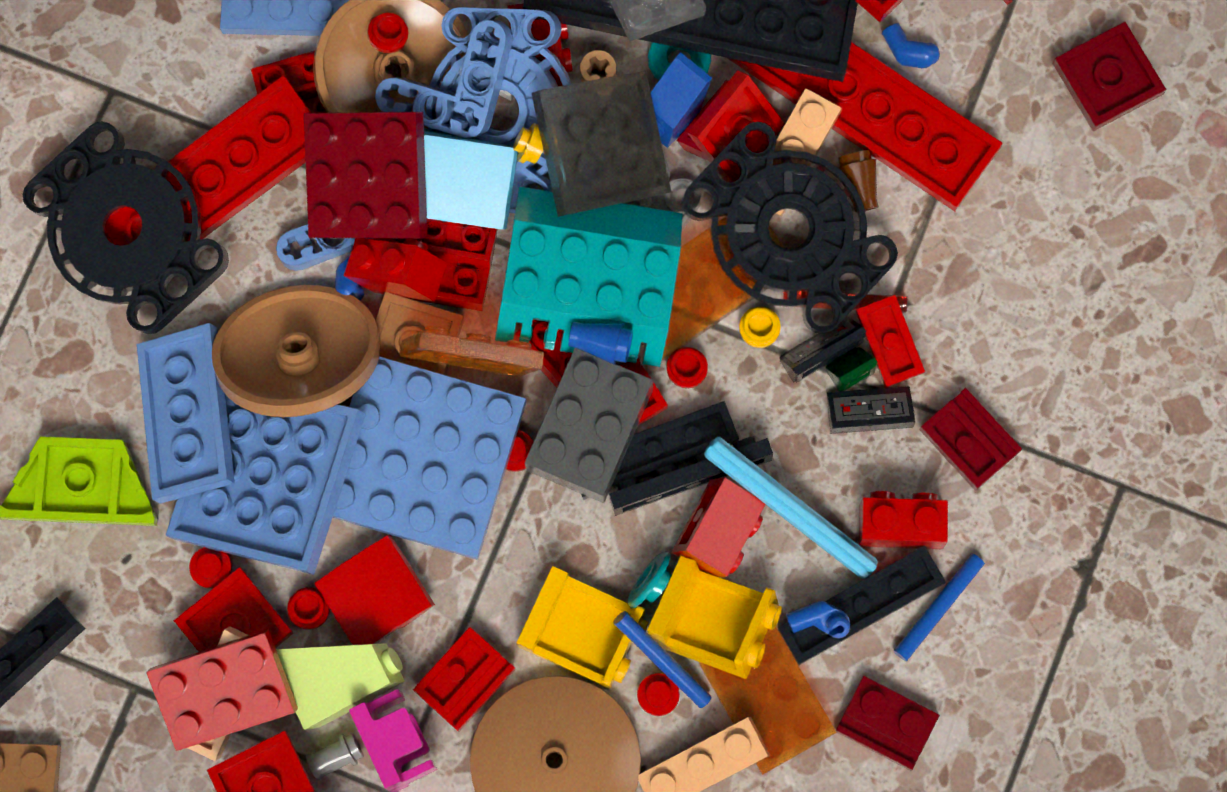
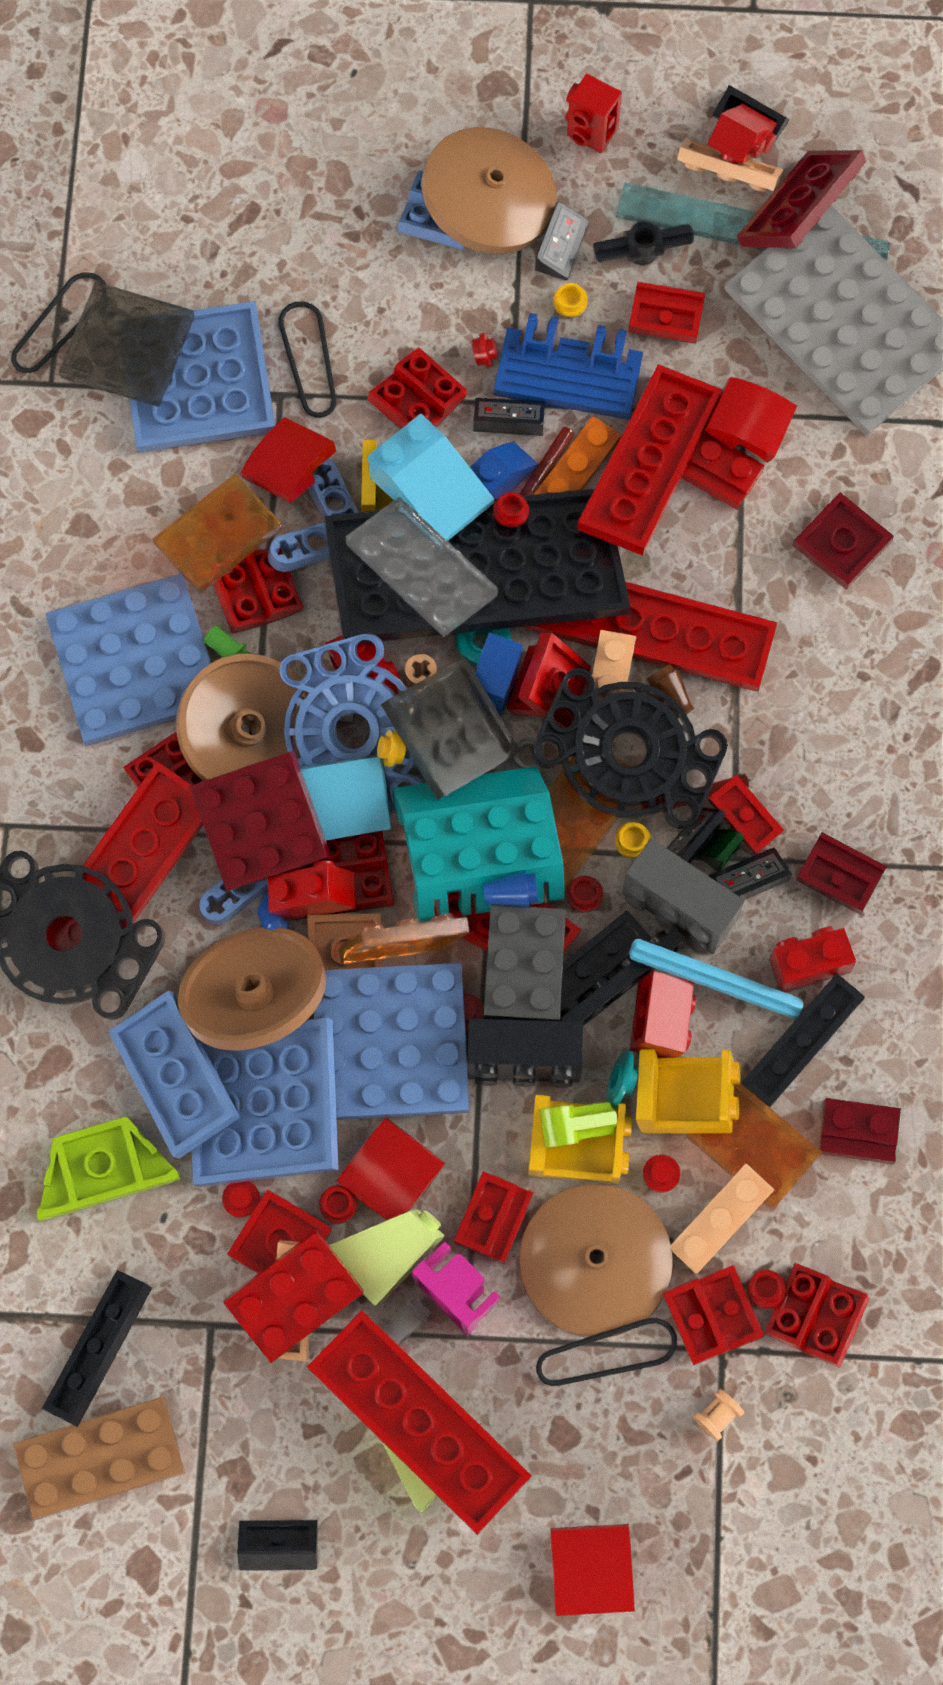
camera: 25 degrees left, 5 degrees down
(387, 33) = (233, 697): red plate -> none
(466, 96) = (322, 726): medium blue beam -> none
(557, 516) = (525, 1052): none -> black brick
(573, 609) = (568, 1123): none -> lime piece
(662, 659) = (656, 1141): blue bar -> none
(785, 408) = (681, 897): none -> dark grey brick
(822, 616) = (774, 1059): blue arm -> none
(909, 52) = (671, 574): blue arm -> none
(939, 607) = (866, 1020): blue bar -> none

